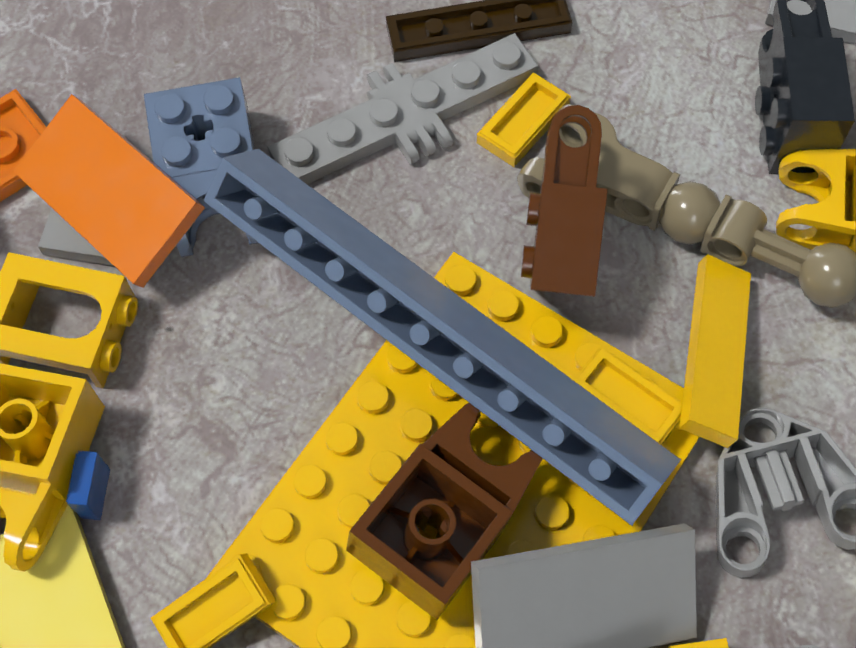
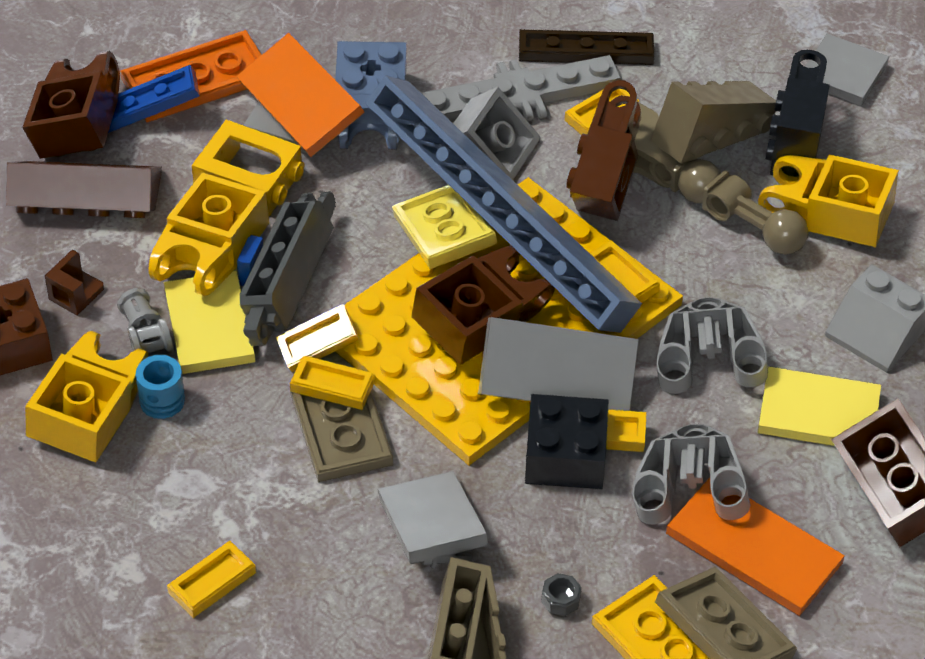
camera: 10 degrees right, 15 degrees down
(140, 492) = (285, 265): none -> dark grey hinge
(355, 373) = (443, 226): none -> light yellow tile
(392, 192) = (498, 130): none -> light grey slope
(688, 119) = (710, 117): none -> dark tan wedge
(716, 352) = (690, 258): yellow tile -> none

